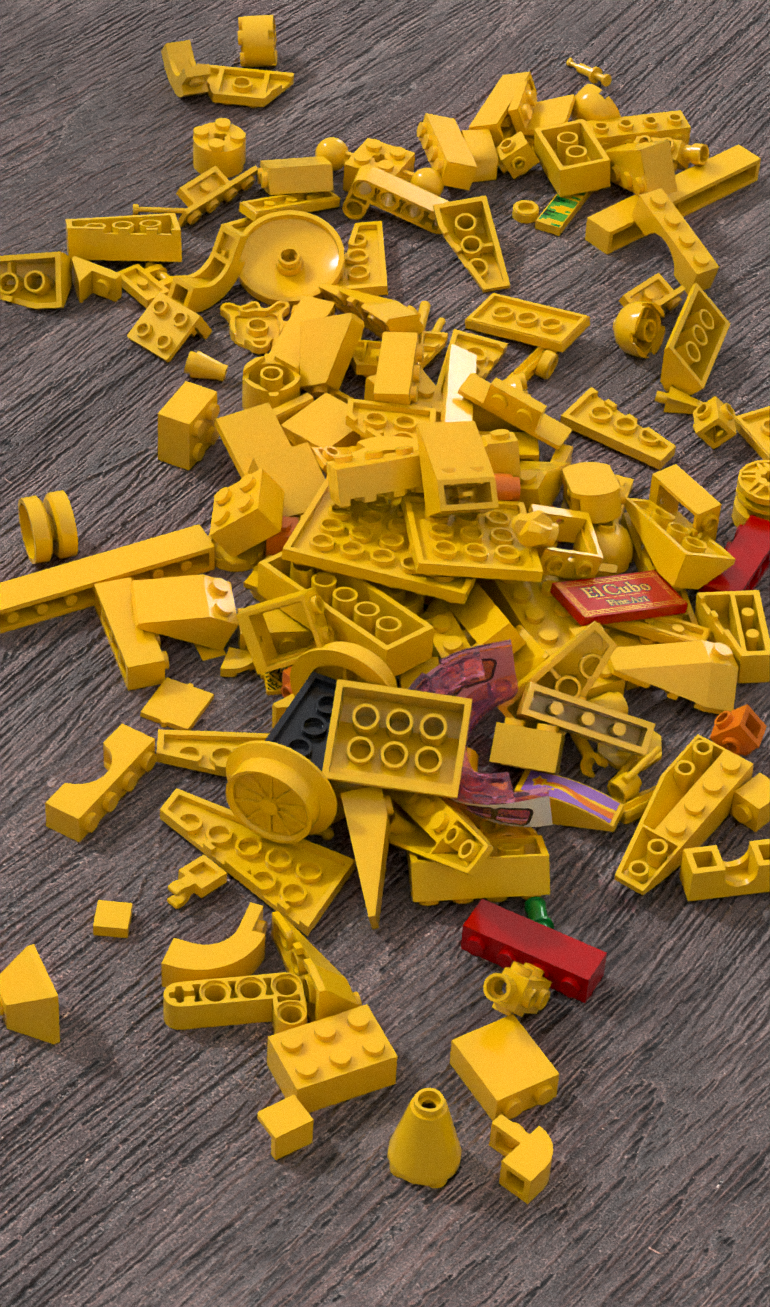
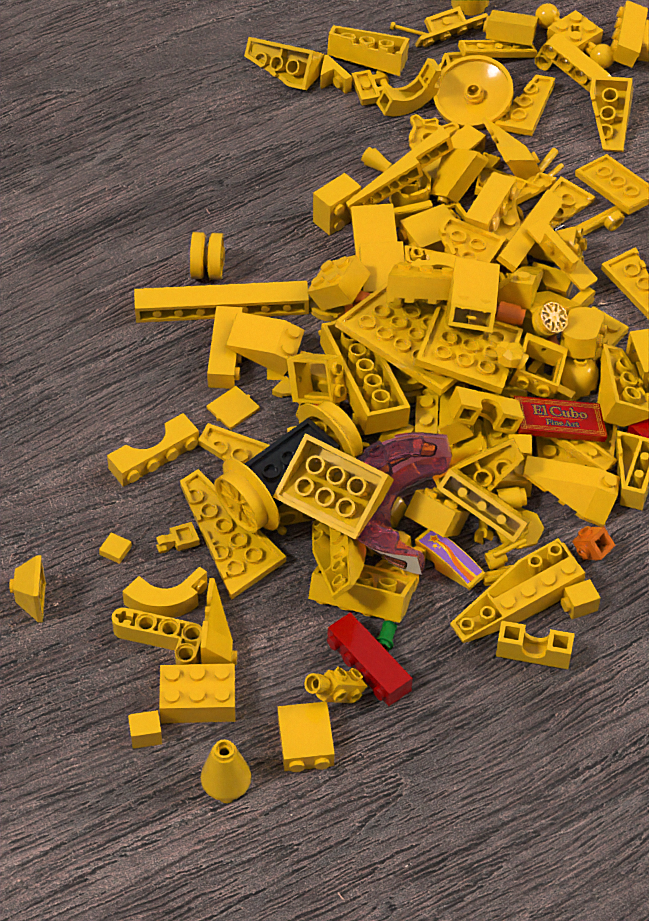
camera: 25 degrees right, 10 degrees up
(166, 327) = (365, 123): yellow bracket -> none
(264, 360) = (404, 170): none -> yellow slope
(369, 833) = (296, 544): yellow wedge -> none
(515, 602) = (502, 412): none -> yellow arch
(526, 1159) = (288, 806): yellow brick -> none
(550, 482) = (548, 319): none -> yellow wheel

